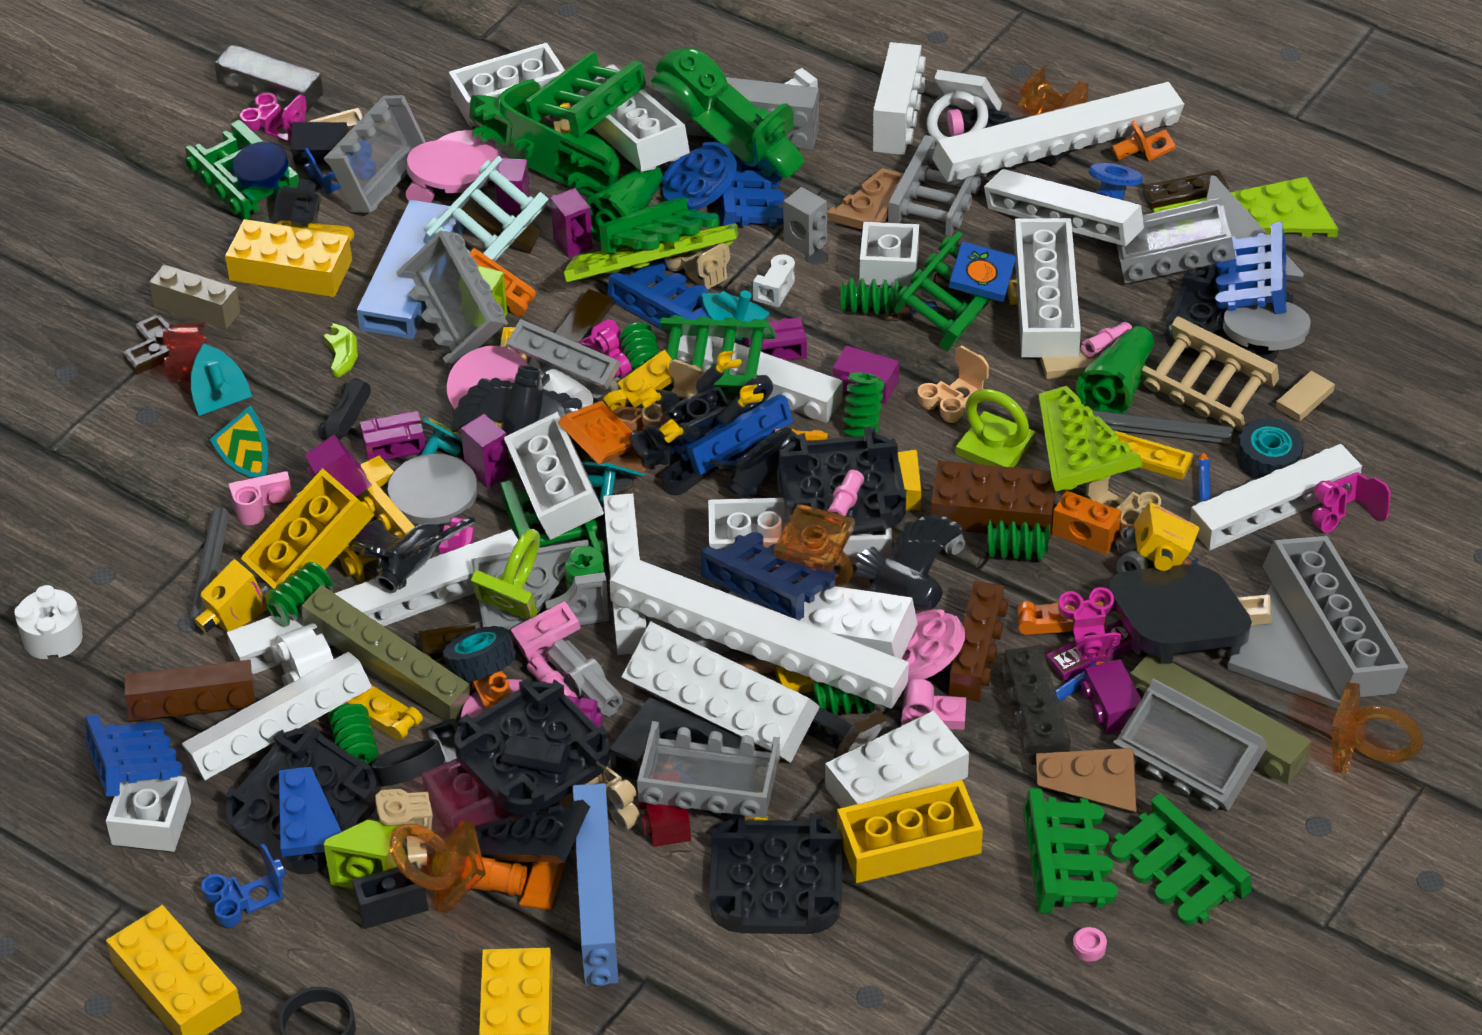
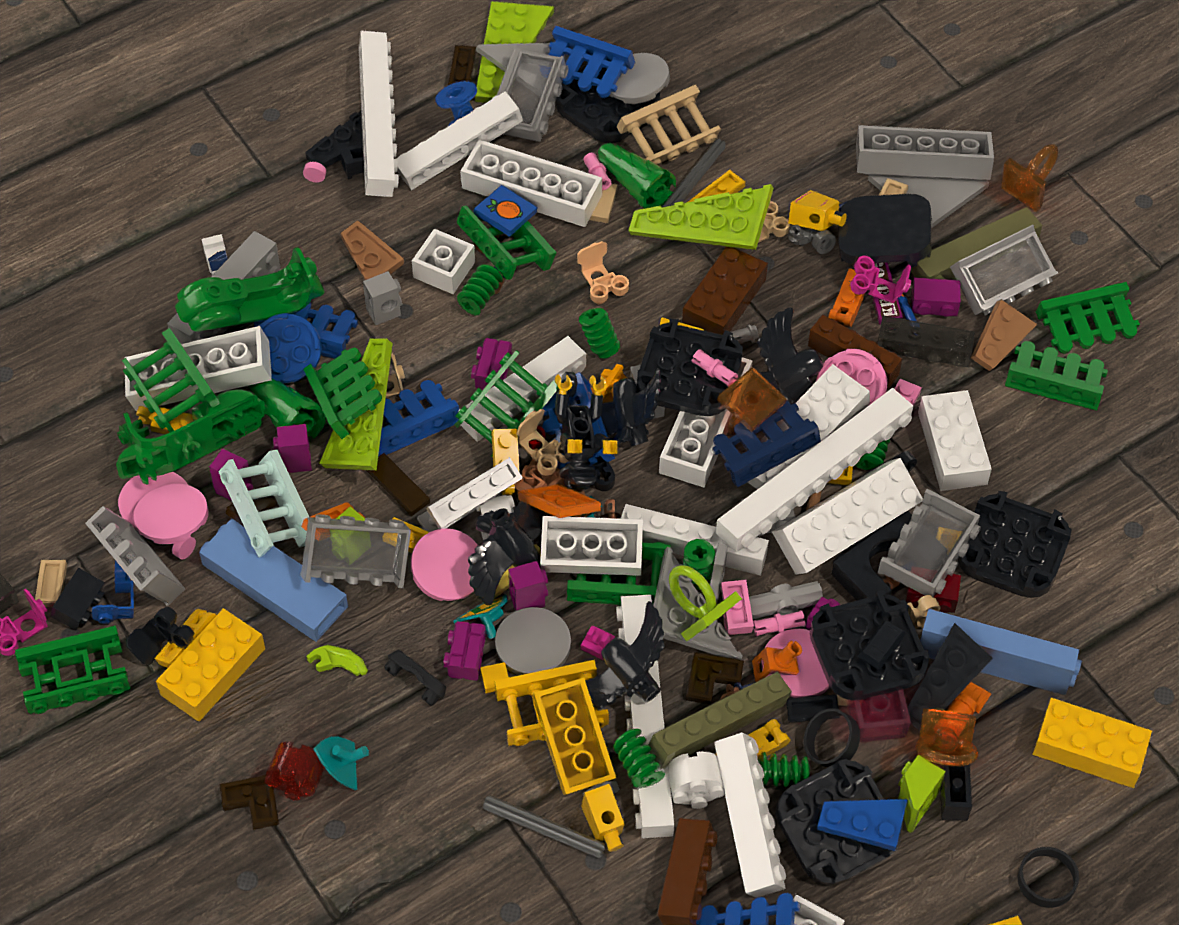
camera: 70 degrees left, 10 degrees up
(195, 296) = (219, 749): dark tan brick -> none
(234, 899) = (903, 867): blue piece -> none
(243, 444) = (426, 759): shield -> none
(255, 493) = (485, 766): bright pink plate -> none
(260, 165) = (94, 647): clear blue tile -> none
(339, 463) = (517, 691): magenta brick -> none
(401, 808) = (900, 749): tan piece -> none
(479, 653) = (739, 645): black wheel -> none
(500, 73) = (91, 440): white brick -> none
(605, 340) = (463, 469): dark pink piece -> none
(638, 344) = (464, 454): green piece -> none
(723, 305) = (446, 381): teal shield -> none
(776, 283) = (426, 341): white leg -> none
(858, 360) = (557, 322): magenta brick -> none
(861, 733) = (936, 445): dark brown tile -> none
(898, 98) = (275, 193): white brick -> none
(909, 831) = (1016, 450): yellow brick -> none
(910, 188) = (353, 212): light grey fence -> none
(965, 92) = (301, 149): white tile -> none
(993, 438) = (660, 270): lime tile -> none
(1018, 540) = (771, 293): green piece -> none
(1041, 98) = (335, 100): clear orange tile -> none
(1086, 522) = (775, 247): orange brick -> none
(1089, 944) = (1135, 392): bright pink tile -> none
(1139, 143) = (404, 74): orange bracket -> none
(1204, 465) = (741, 168): blue piece -> none
(1268, 446) = (748, 127): black wheel -> none
(1270, 497) = (793, 140): white brick -> none
(1305, 396) = (708, 94): tan tile -> none
(1369, 492) = (815, 98): dark pink piece -> none

